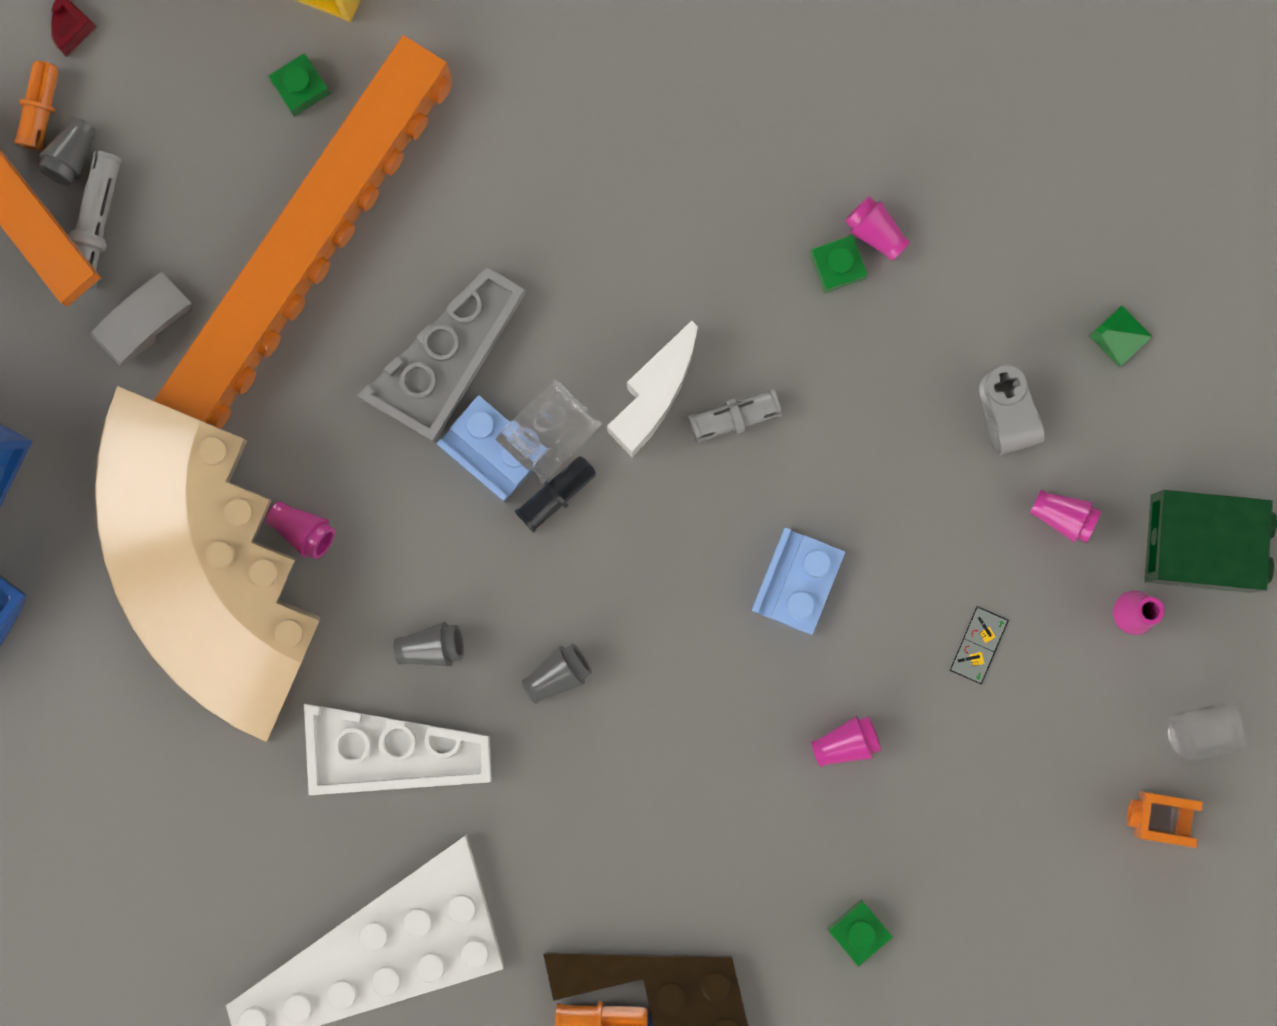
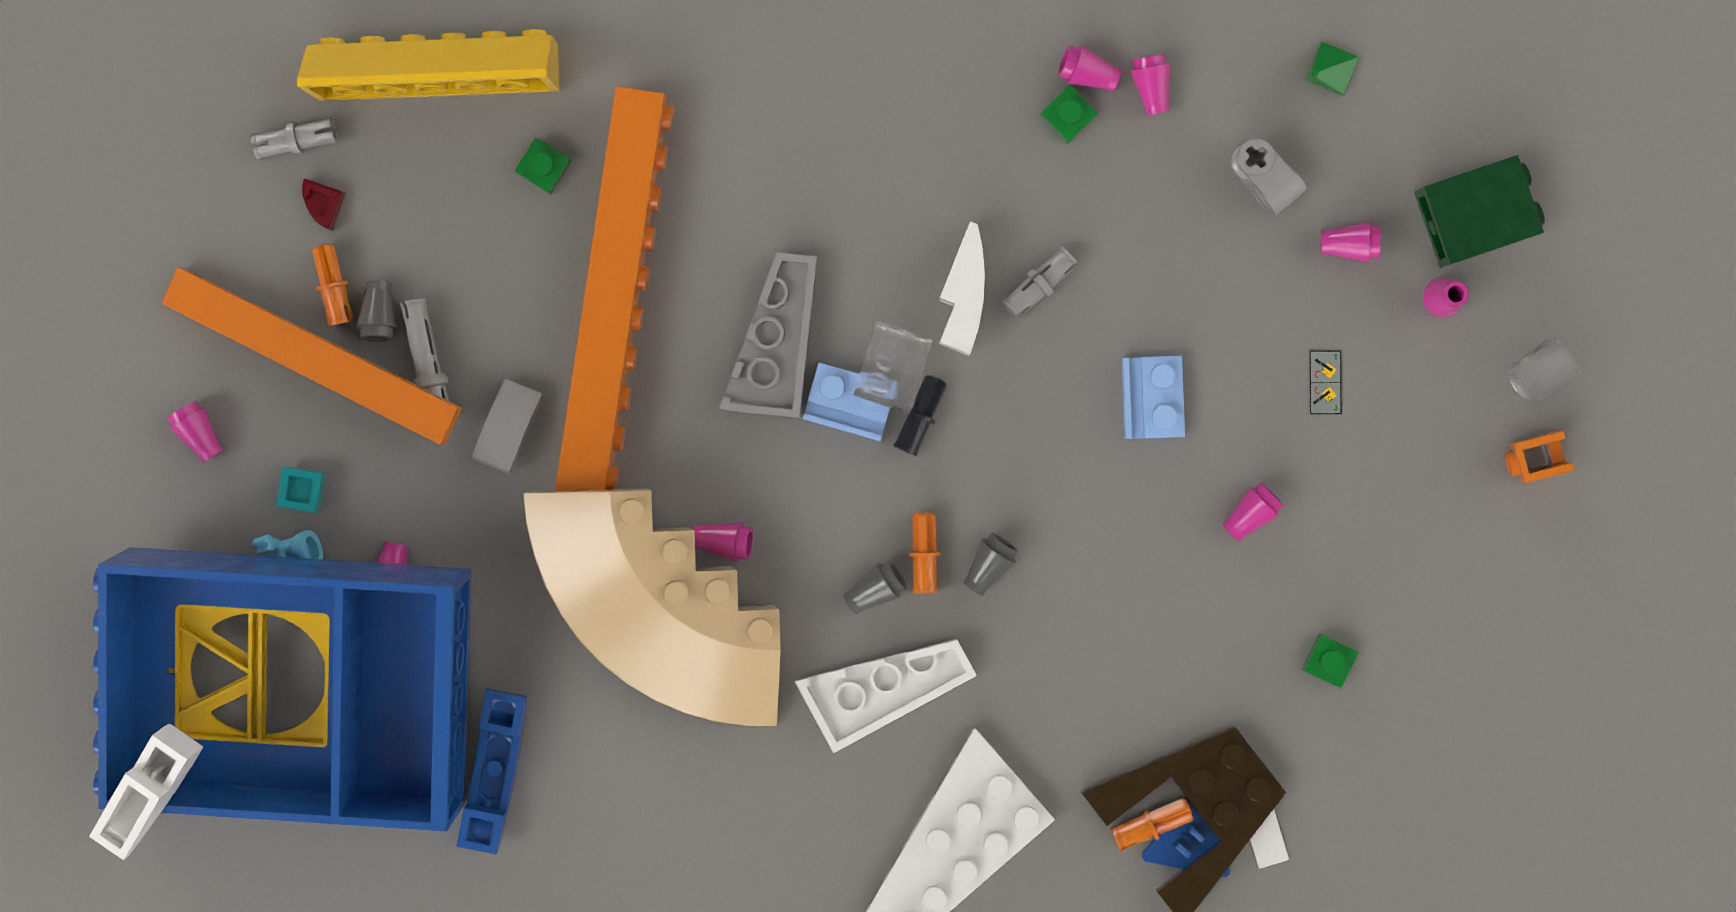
camera: 25 degrees left, 5 degrees up
(496, 633) = (924, 553): none -> orange axle
(935, 268) = (1152, 82): none -> dark pink cone

